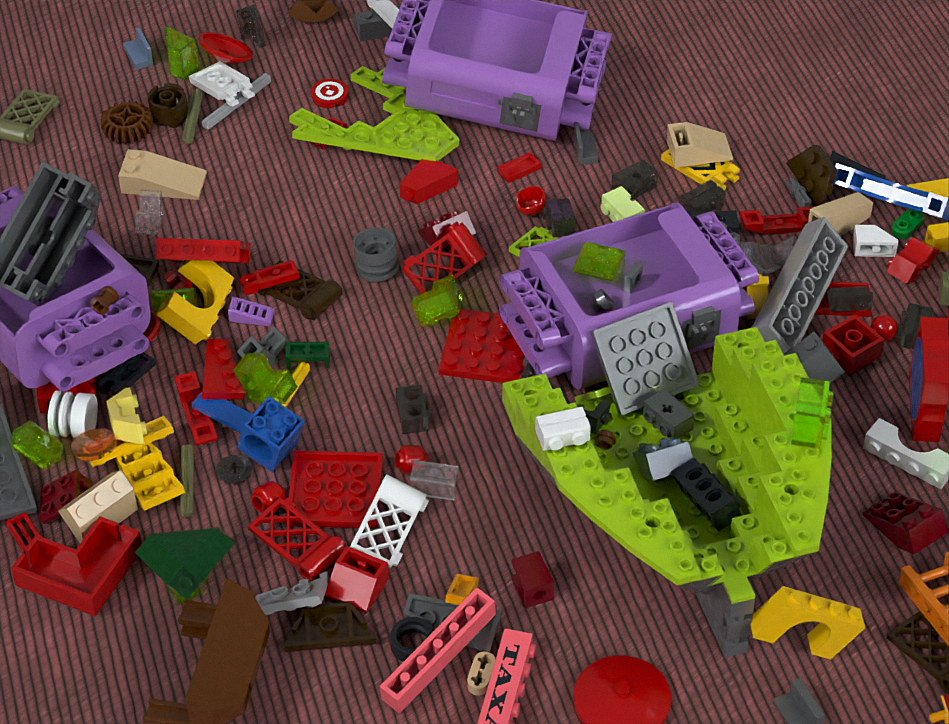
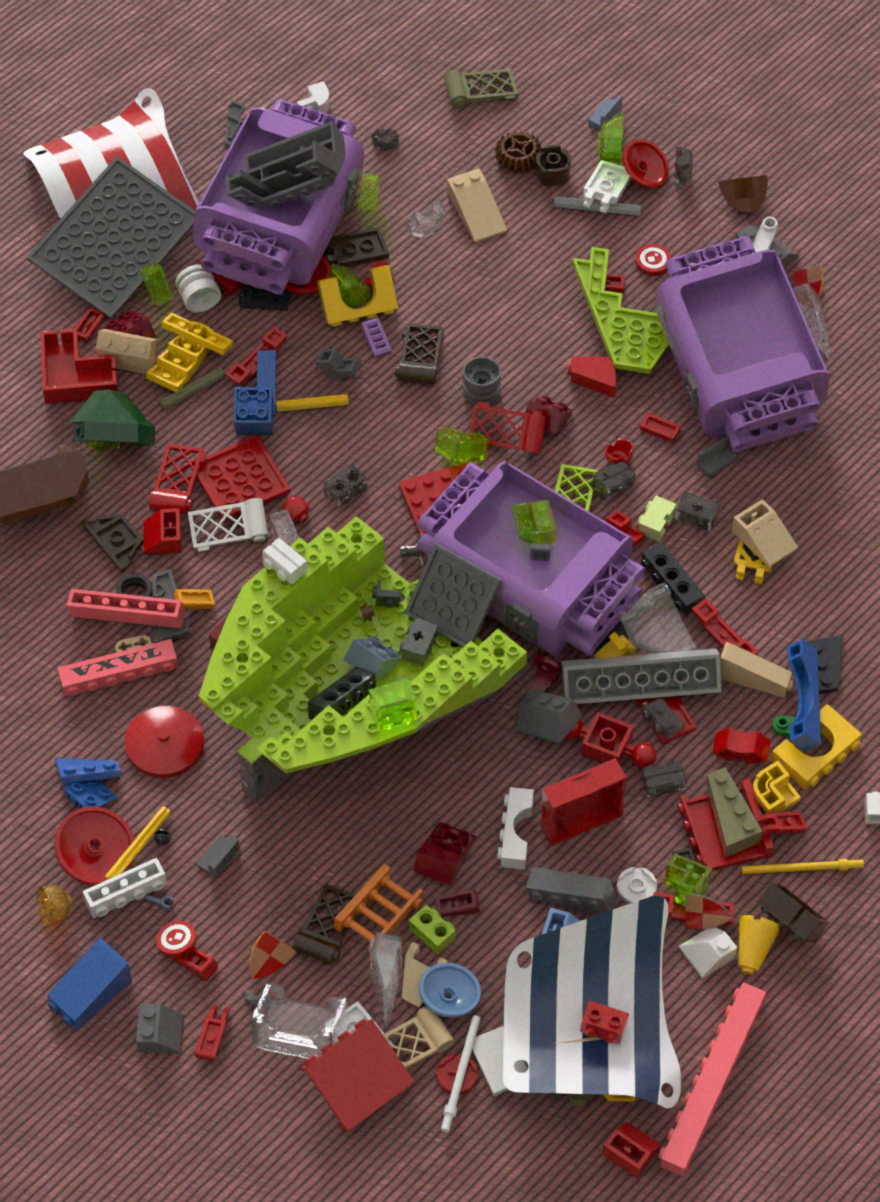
camera: 60 degrees right, 10 degrees up
(93, 444) = (176, 315): clear orange tile -> none
(103, 301) = (262, 237): reddish brown bush -> none
(123, 420) = (226, 310): light yellow slope -> none
(192, 116) = (558, 188): olive axle -> none
(202, 249) = (398, 271): red panel -> none
(219, 377) = (300, 351): red wing -> none
(225, 467) = (222, 404): clear smoke gear -> none
(262, 381) = (305, 383): clear neon green brick -> none
(266, 495) = (205, 440): red head -> none
(269, 277) = (415, 329): red hinge -> none
(300, 595) = (124, 503): light grey wing -> none
(307, 352) = (353, 393): dark green hinge -> none
(602, 300) = (502, 543): dark grey tile -> none
(703, 198) = (708, 568): clear smoke brick -> none
(789, 607) = (290, 835): yellow arch -> none
(798, 192) = (770, 632): dark grey axle -> none
(814, 173) = (794, 630): dark brown wing -> none
(873, 242) = (744, 707): white slope -> none

